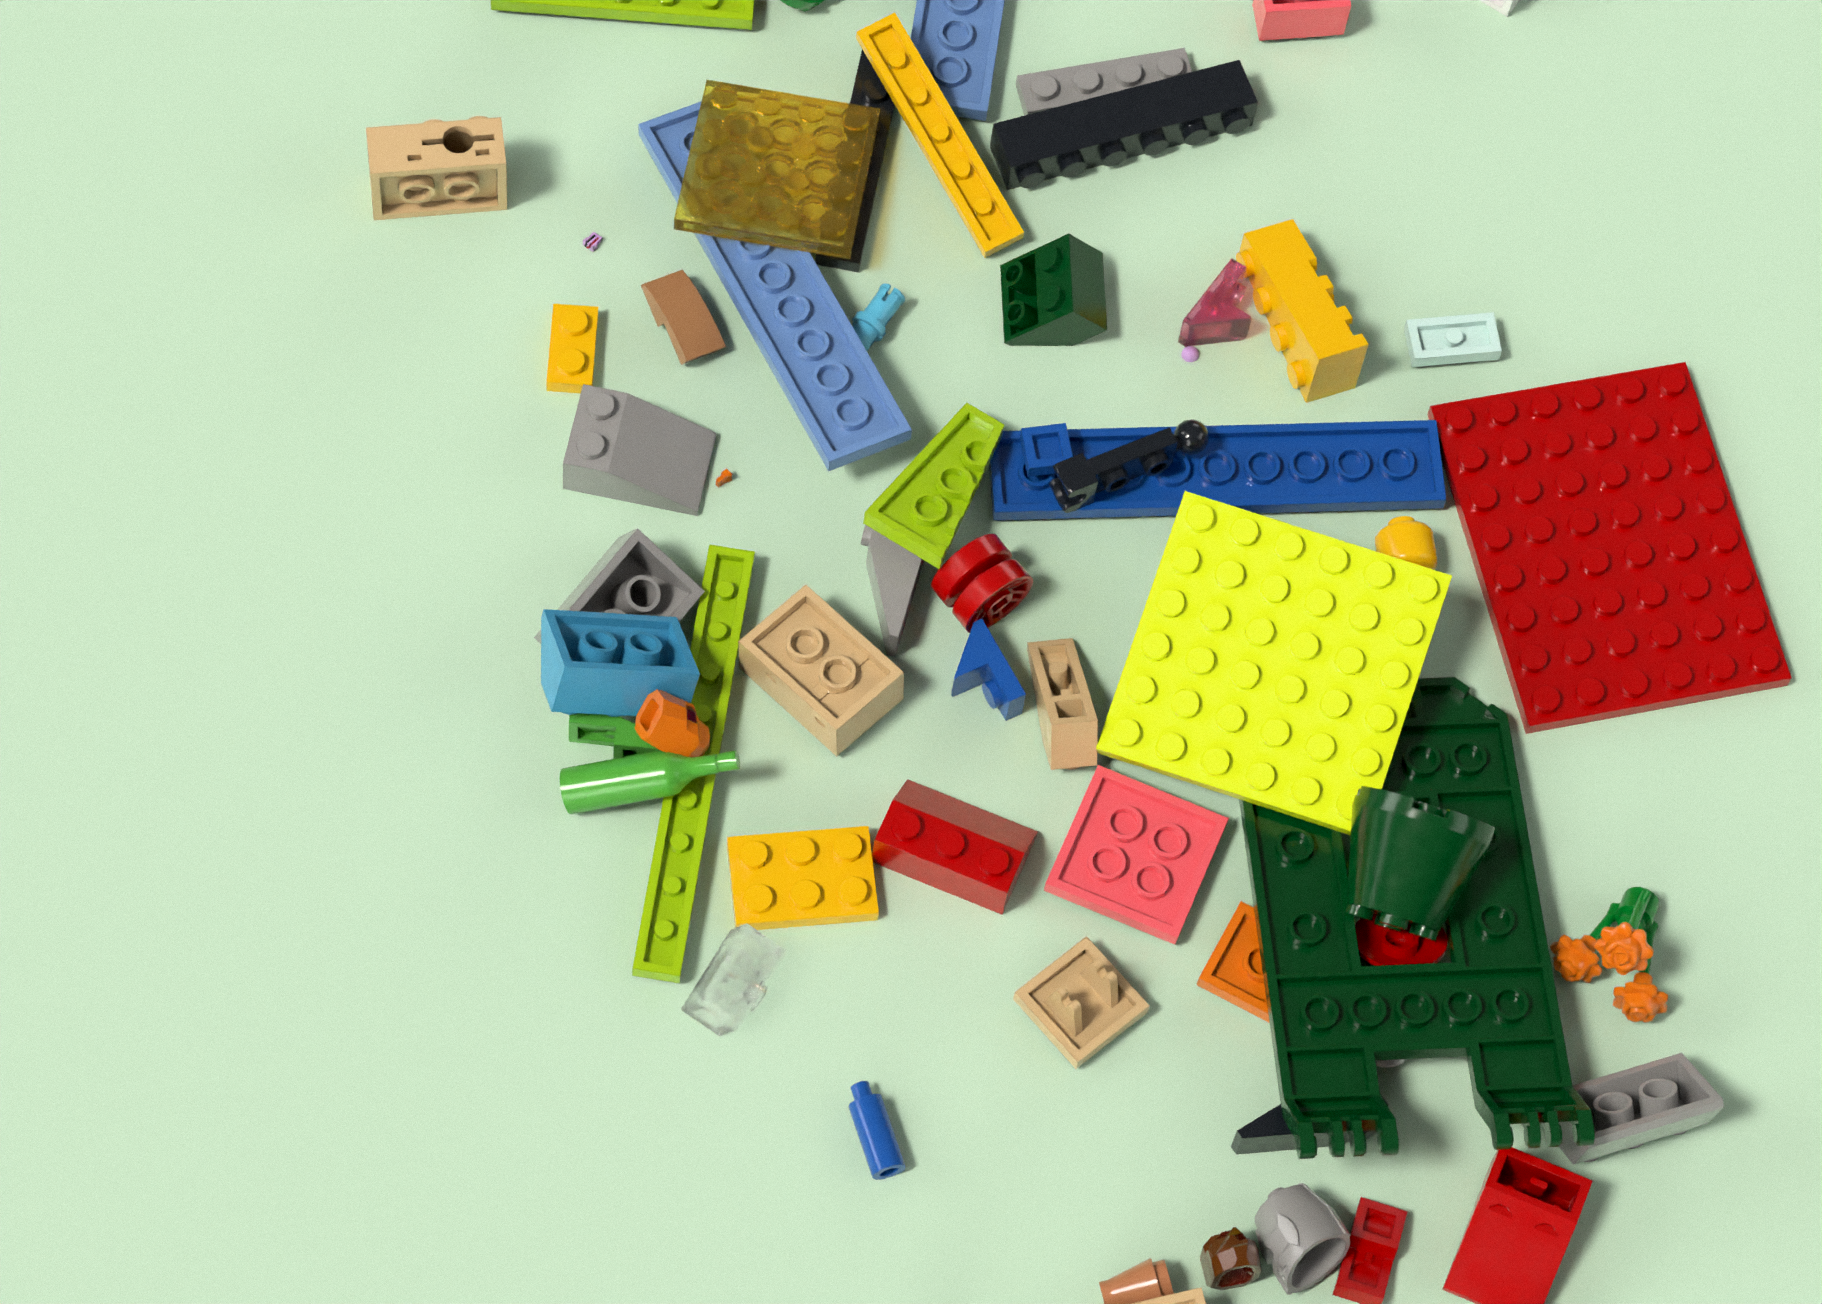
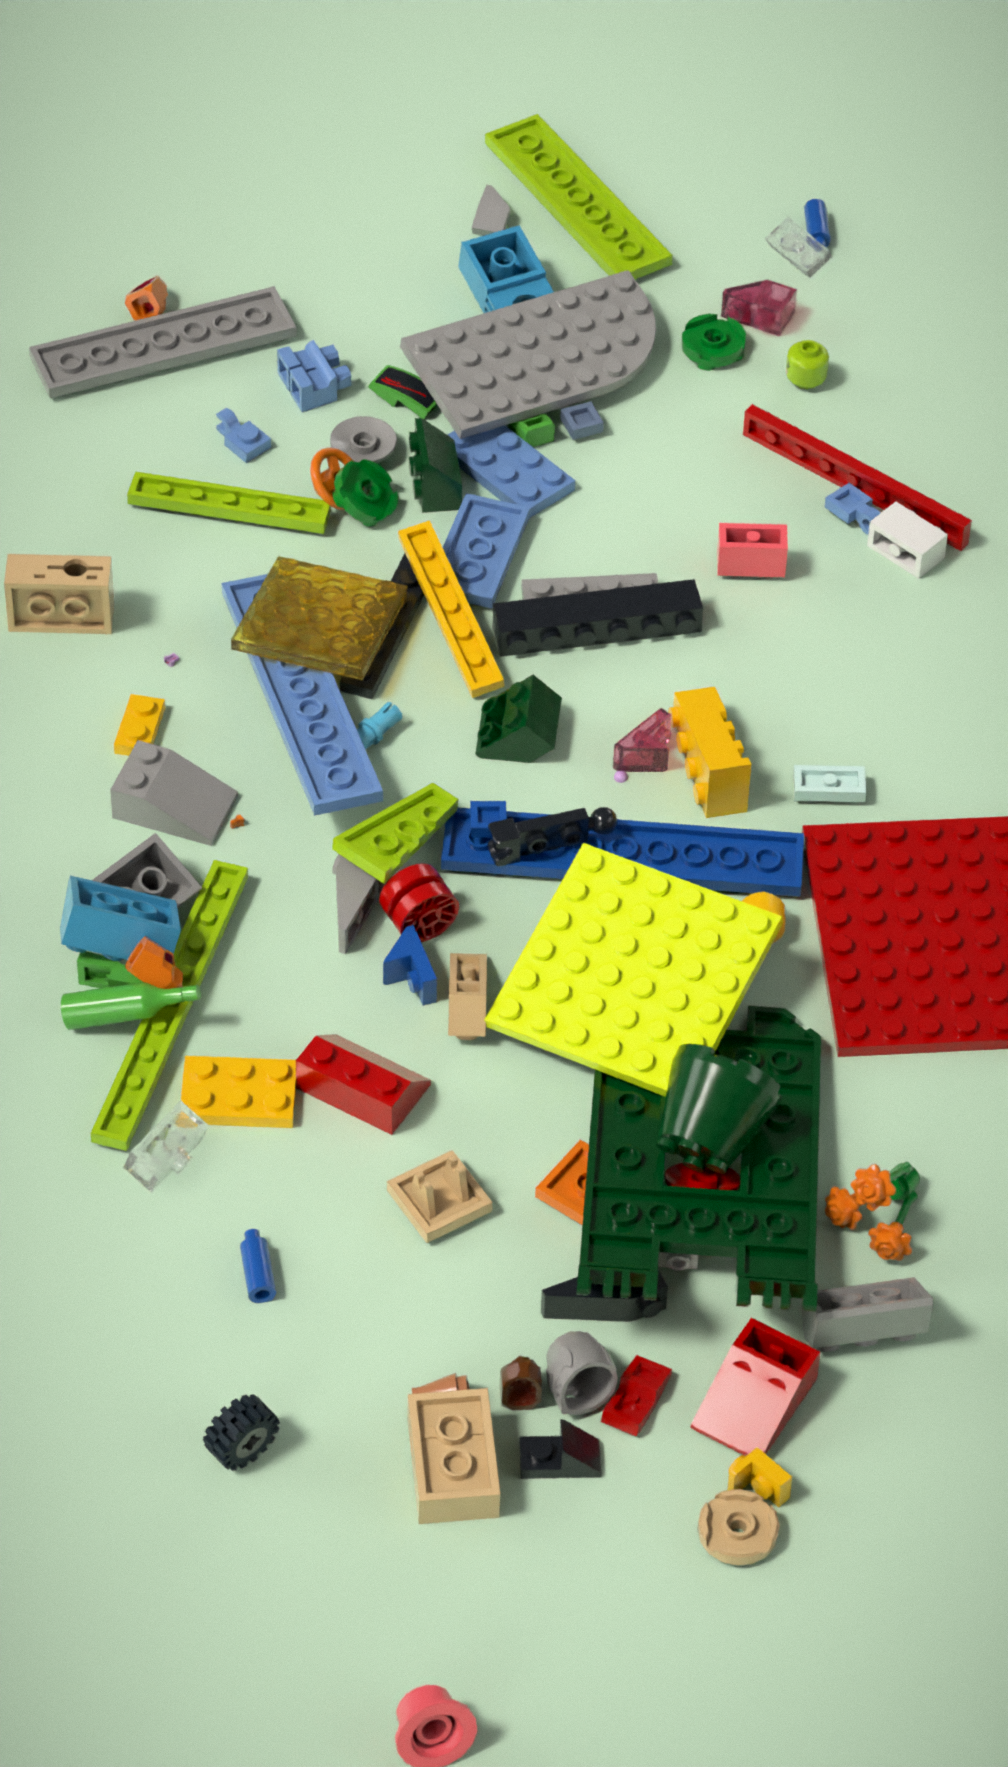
camera: 15 degrees right, 15 degrees down
(685, 315) = (229, 710): medium nougat slope -> none
(821, 670) = (281, 949): tan piece -> none
(1136, 854) = (504, 1101): coral plate -> none

